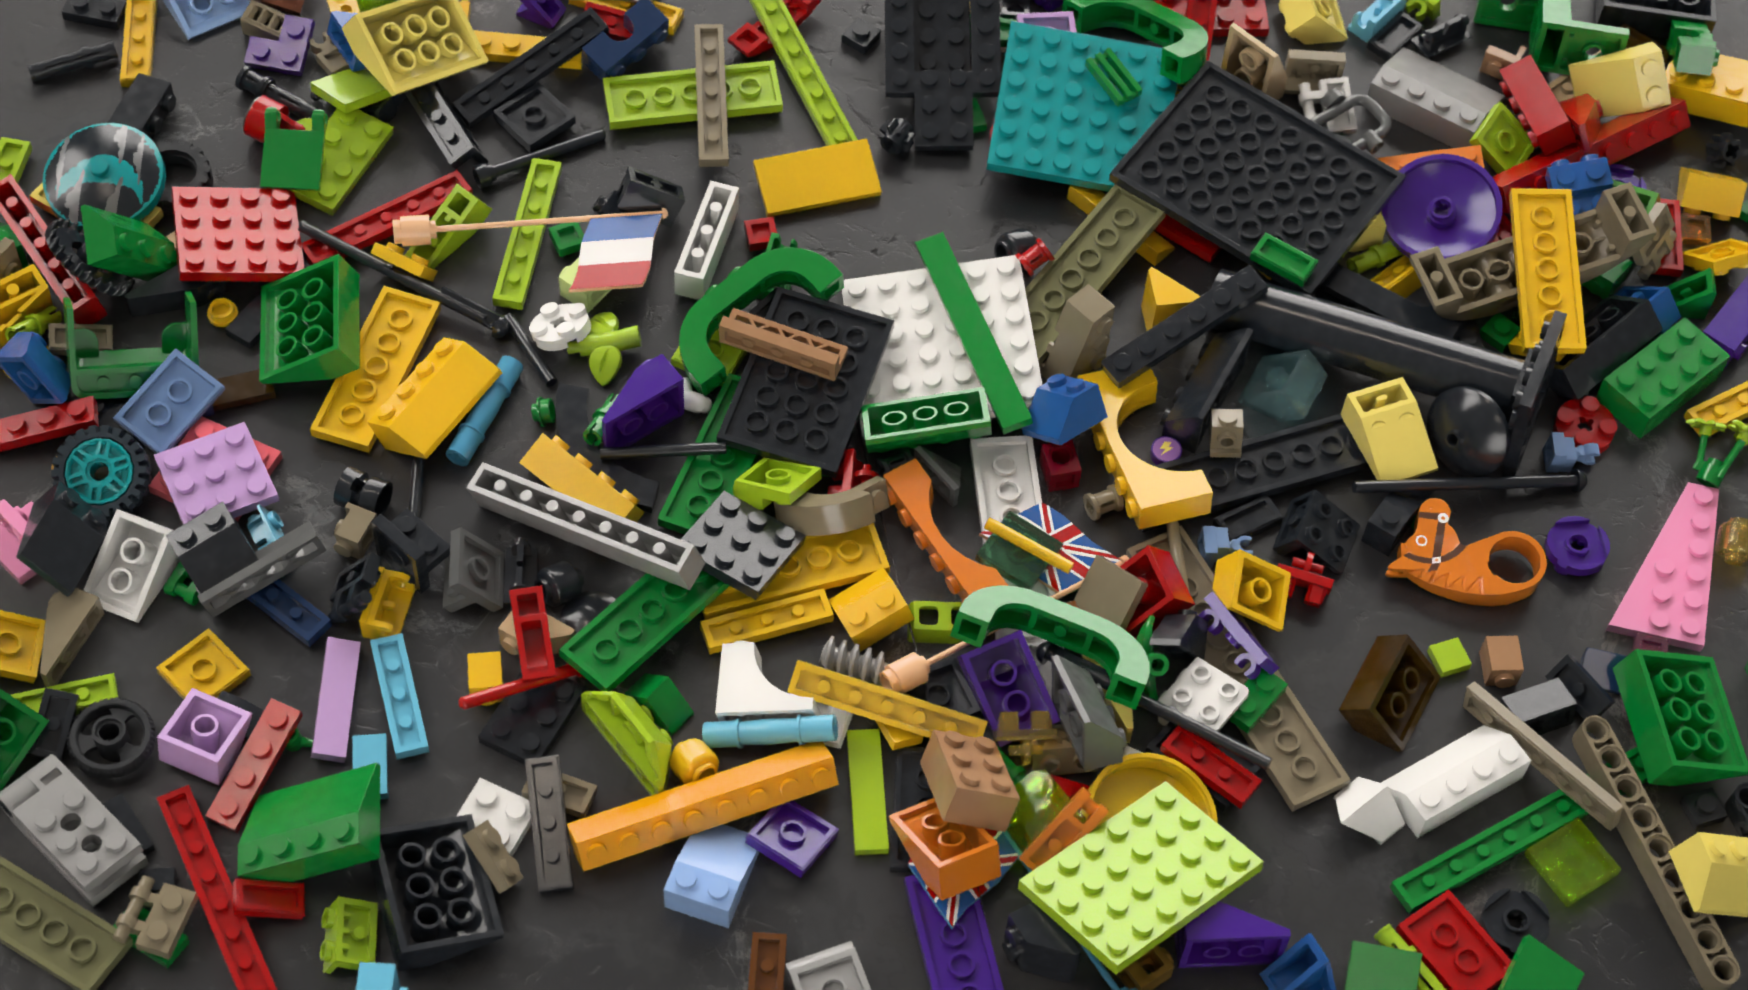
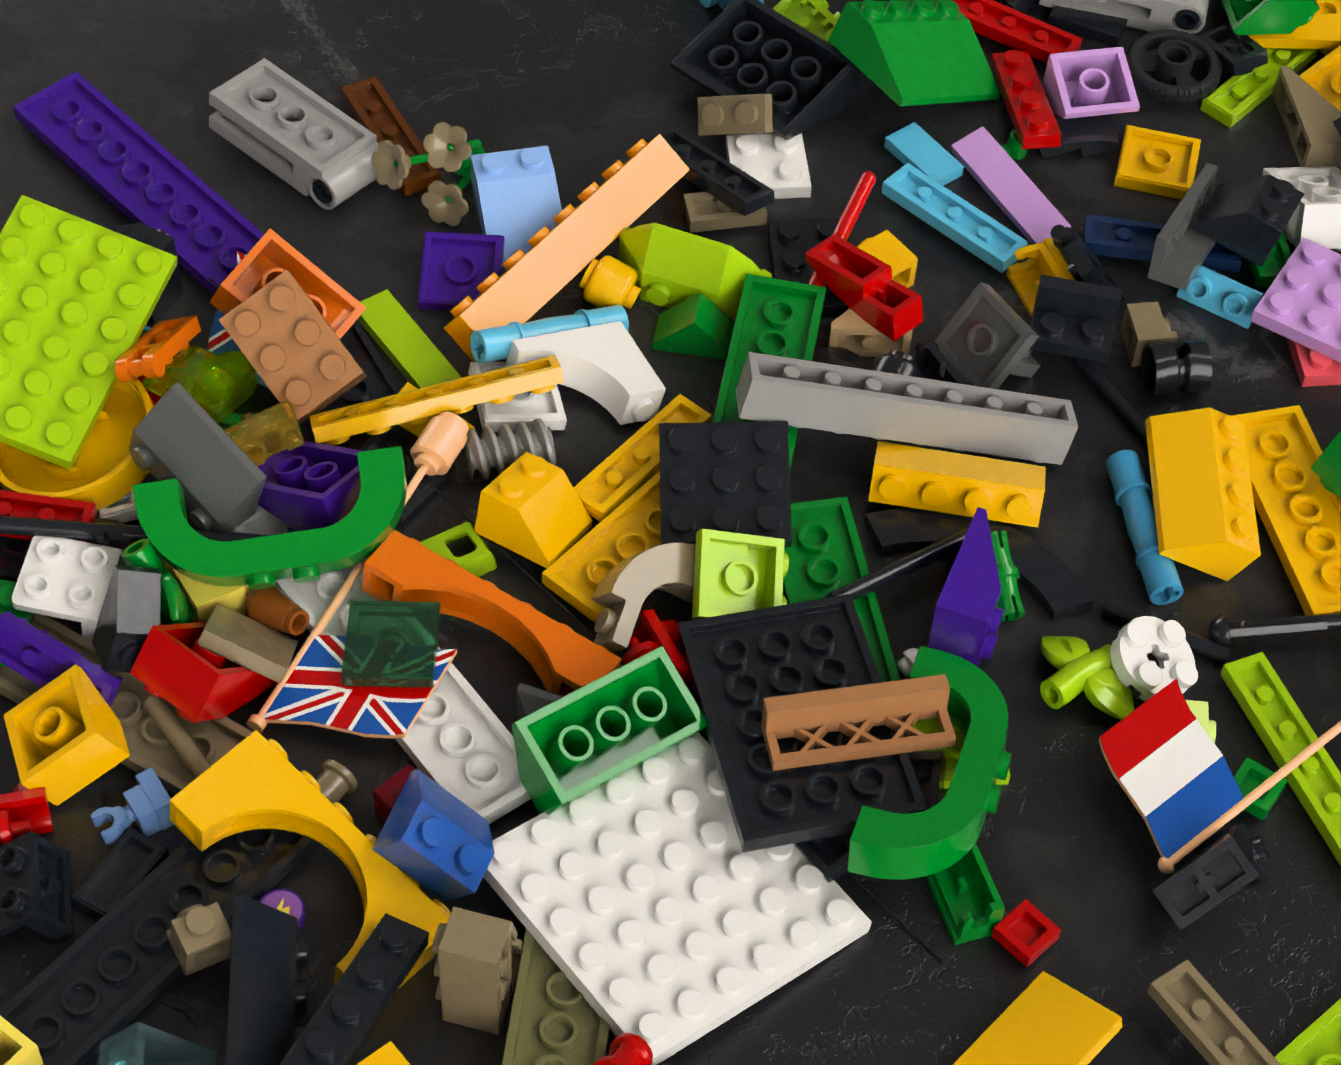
camera: 150 degrees right, 5 degrees down
(543, 411) = (1080, 558): green plate -> none
(706, 240) = (1081, 864): white brick -> none
(723, 937) = (445, 149): none -> dark tan plant
(974, 333) = (638, 899): green tile -> none
(1029, 545) = (380, 639): yellow bar -> none

